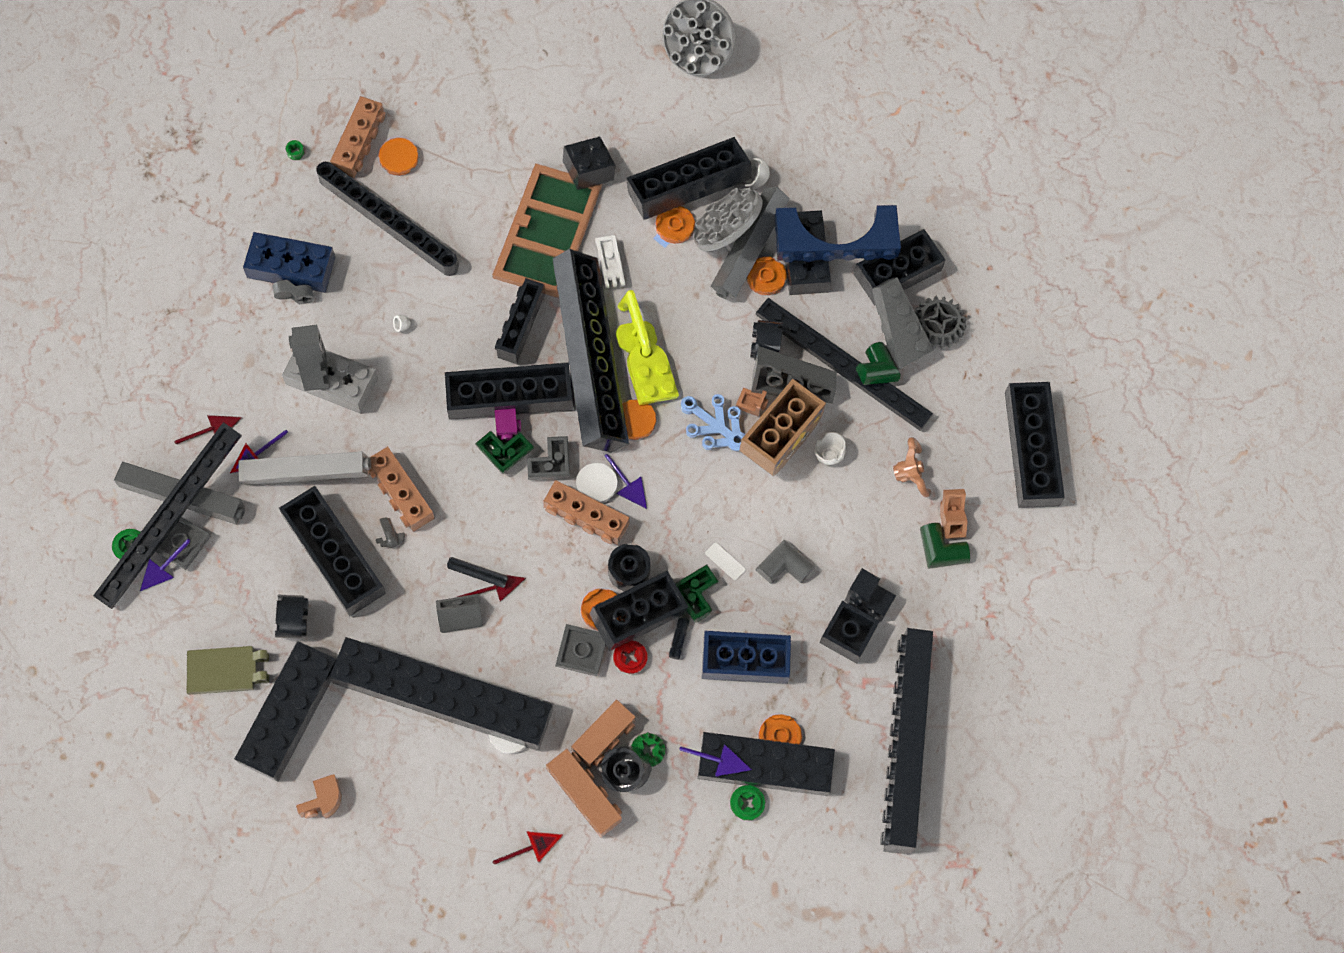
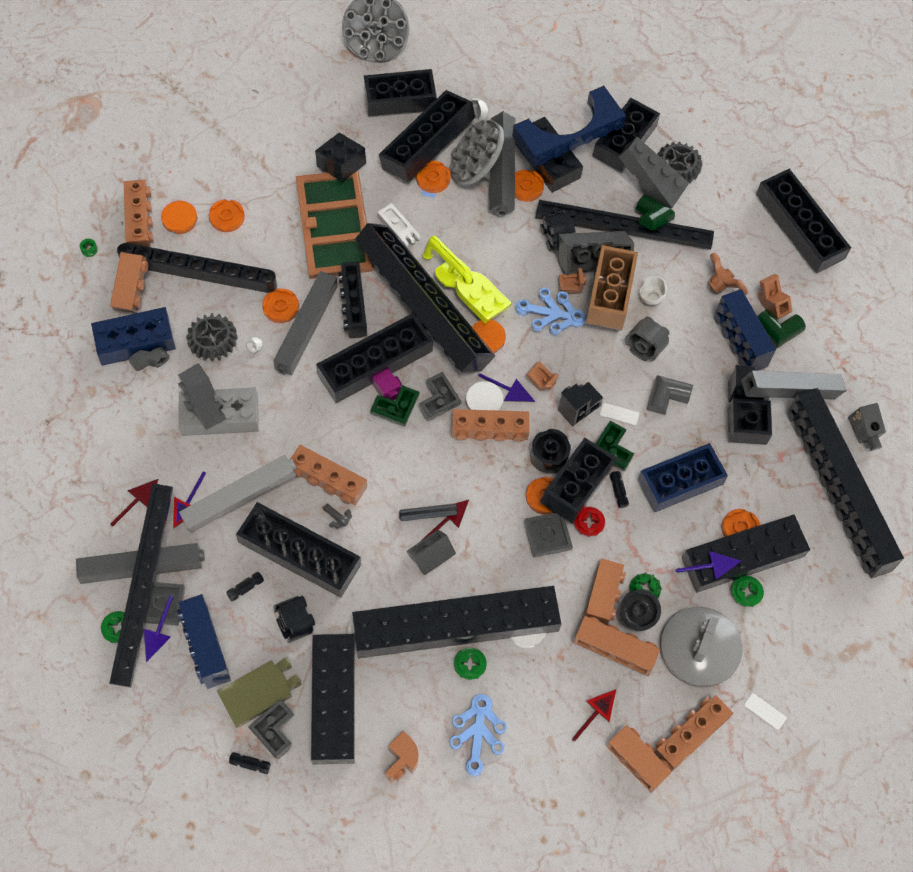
camera: 25 degrees left, 5 degrees down
(181, 733) = (249, 763): none -> black axle
(196, 598) = (204, 642): none -> dark blue brick
(212, 709) = (267, 729): none -> dark grey brick
(265, 562) = (245, 586): none -> black axle
(311, 205) = (129, 282): none -> nougat brick
(348, 292) = (220, 330): none -> dark grey gear
(407, 808) = (478, 729): none -> light blue plant
(434, 730) = (477, 658): none -> green gear
(446, 175) = (226, 215): none -> orange tile
(448, 294) = (280, 305): none -> orange tile
(461, 324) = (305, 323): none -> dark grey brick
(545, 912) = (639, 758): none -> nougat brick
(610, 914) = (694, 732): none -> nougat brick
(665, 486) = (541, 376): none -> nougat bracket
(668, 834) = (701, 646): none -> light grey bracket
(686, 531) = (579, 402): none -> black brick
(687, 117) = (399, 92): none -> black brick
(697, 929) = (765, 711): none -> white sticker
(793, 497) = (647, 339): none -> dark grey brick
(898, 535) = (744, 330): none -> dark blue brick
(912, 615) = (789, 384): none -> brick
(974, 687) = (868, 425): none -> dark grey torso

